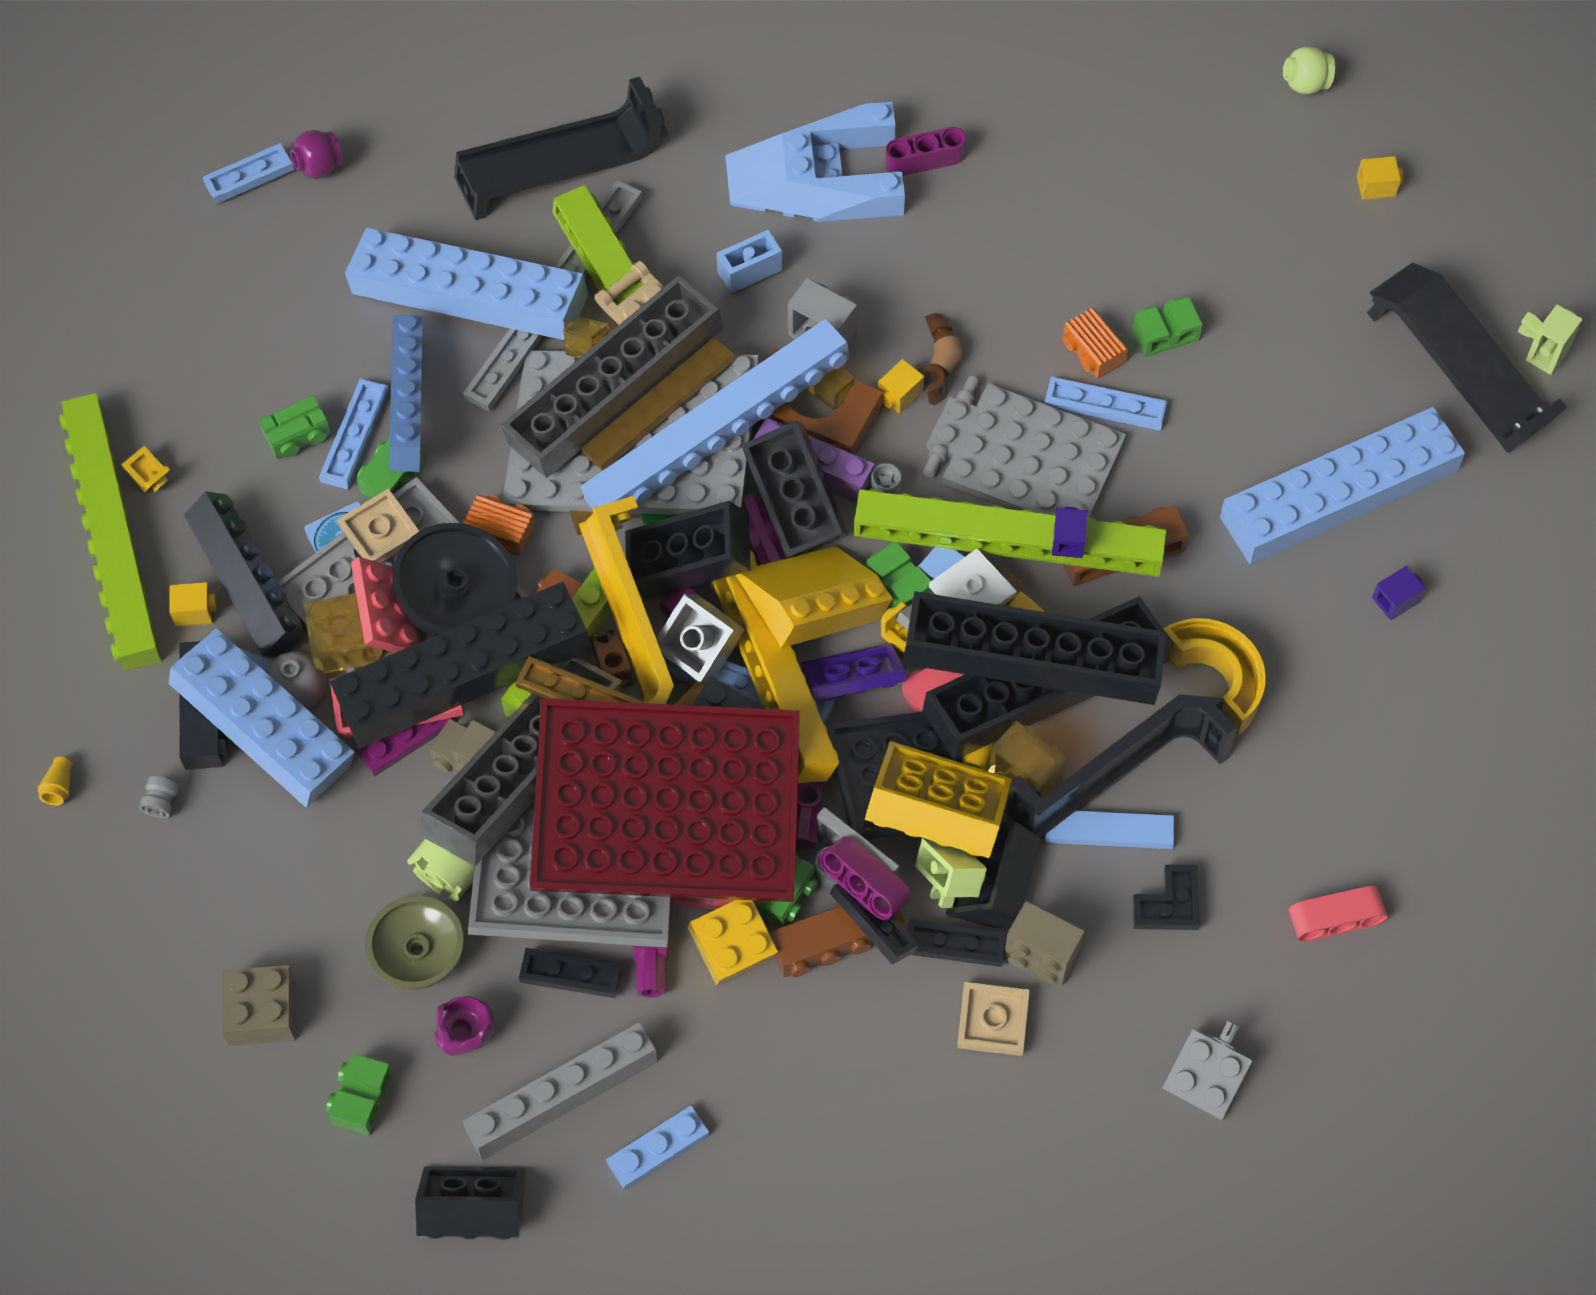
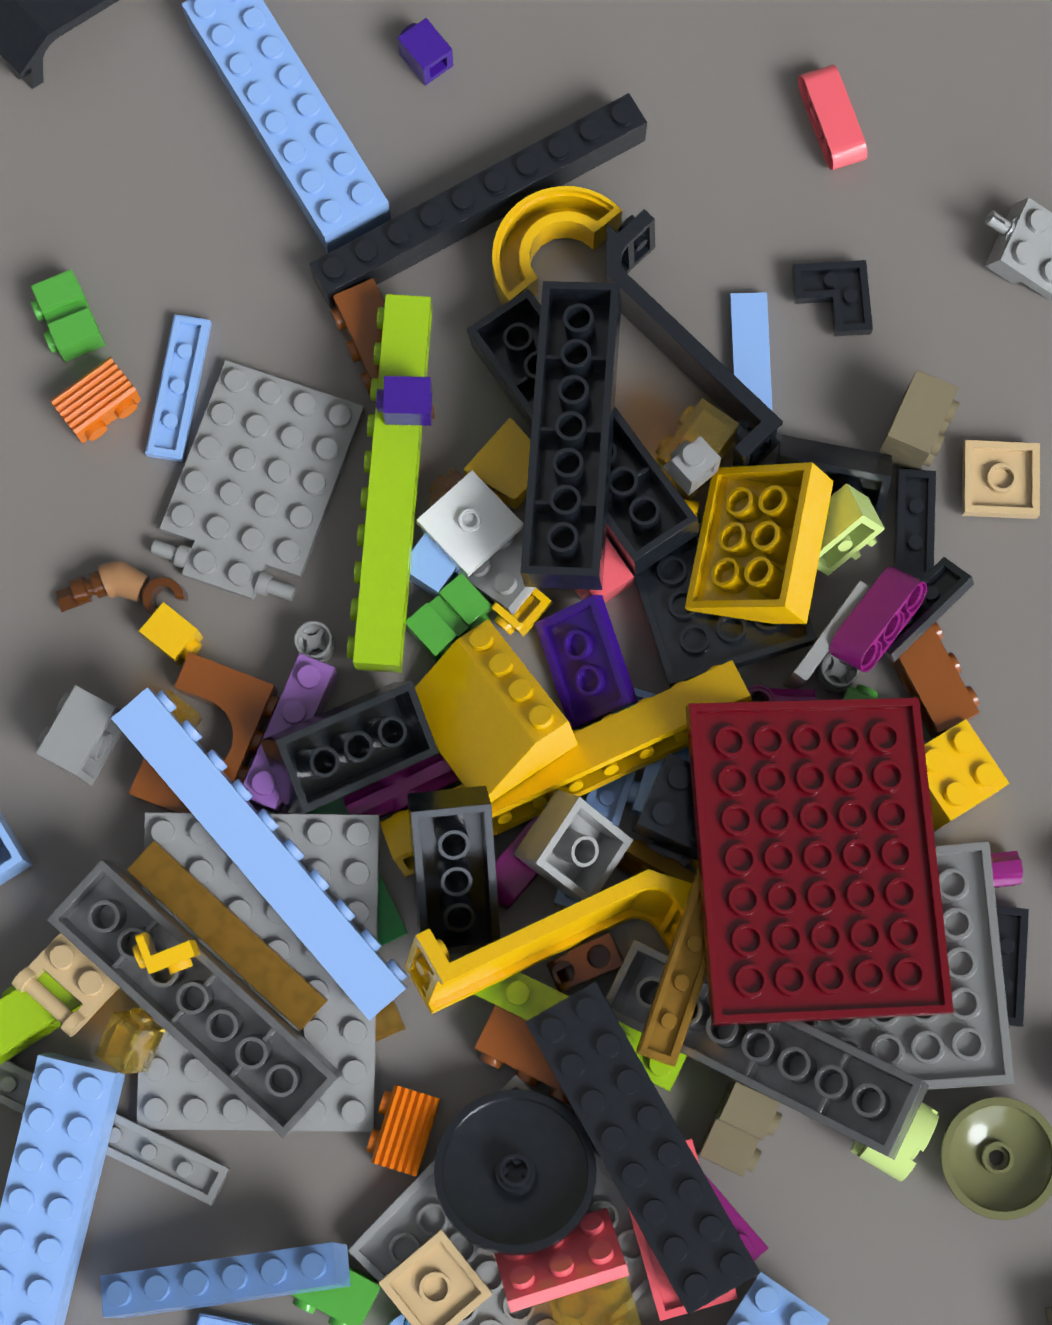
camera: 95 degrees left, 15 degrees up
(641, 334) = (174, 958): none -> yellow bracket
(1003, 737) = (692, 464): none -> light grey brick
(1263, 626) = (481, 199): none -> black brick

